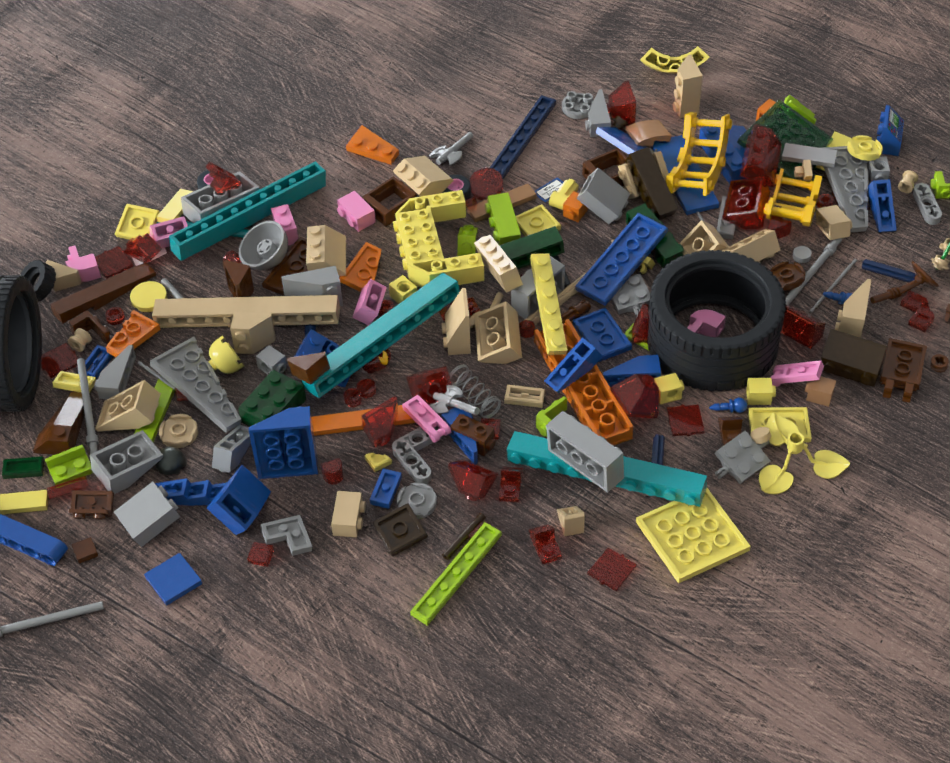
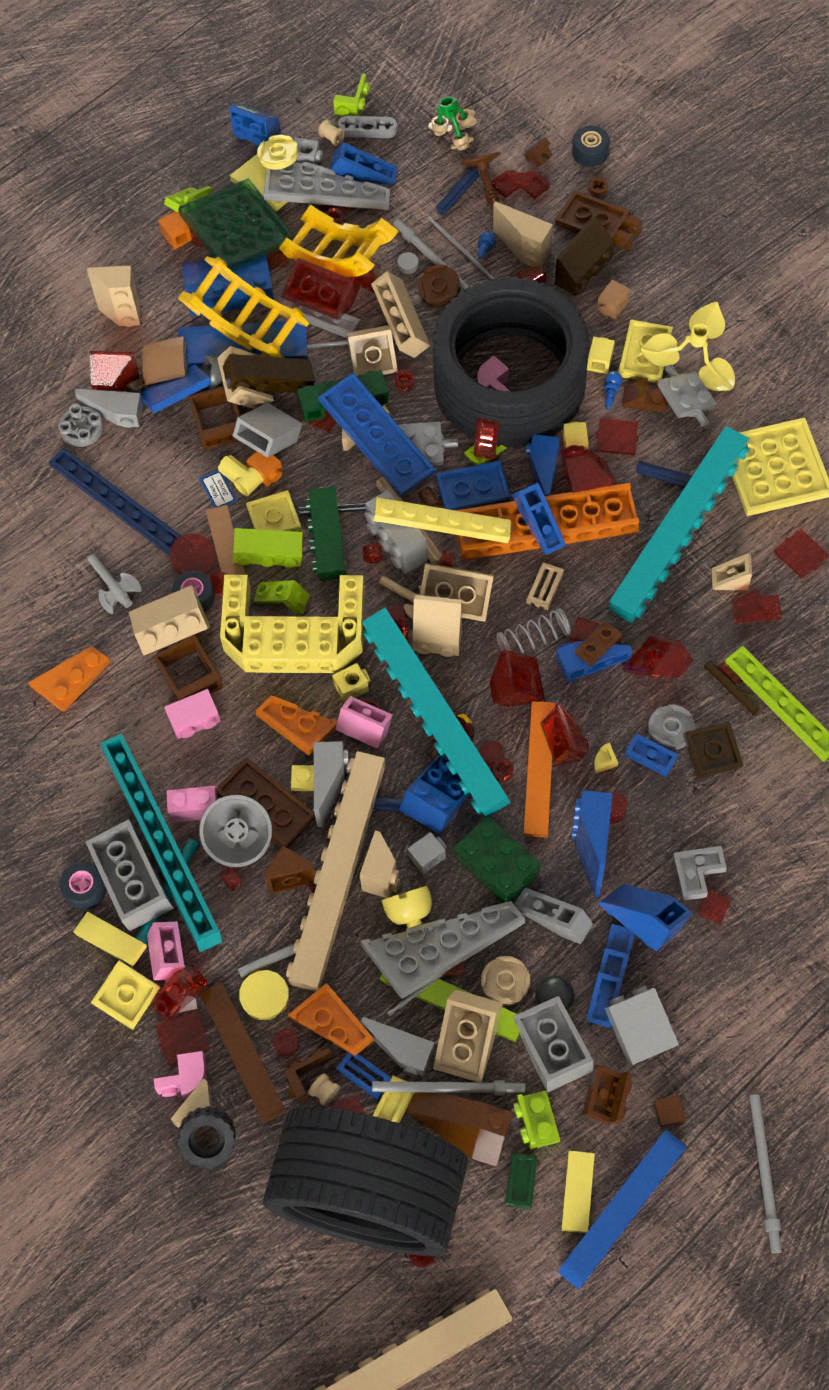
camera: 75 degrees left, 15 degrees up
(67, 487) = (572, 1123): clear red tile -> none
(173, 579) = (732, 1010): blue tile -> none
(223, 179) = (109, 860): clear red slope -> none
(309, 366) = (485, 797): reddish brown slope -> none
(325, 249) = (267, 759): tan slope -> none
(347, 514) = (681, 801): tan brick -> none
(411, 453) = (595, 720): light grey beam -> none
(426, 418) = (566, 690): bright pink plate -> none
(449, 399) = (546, 662): light grey piece -> none
(498, 263) = (366, 557): tan brick -> none
(510, 484) = (666, 625): clear red slope -> none
(549, 414) = (599, 572): lime bracket -> none
(585, 451) = (679, 527): light grey brick -> none
(668, 64) = (53, 300): light yellow brick -> none
(760, 435) = (667, 368): tan tile -> none
(761, 154) = (262, 253): clear red slope -> none
(797, 372) = (596, 305): bright pink plate -> none
(804, 171) = (294, 219): tan tile -> none
(818, 156) = (274, 206): light grey tile -> none
(833, 222) = (373, 211): tan brick -> none

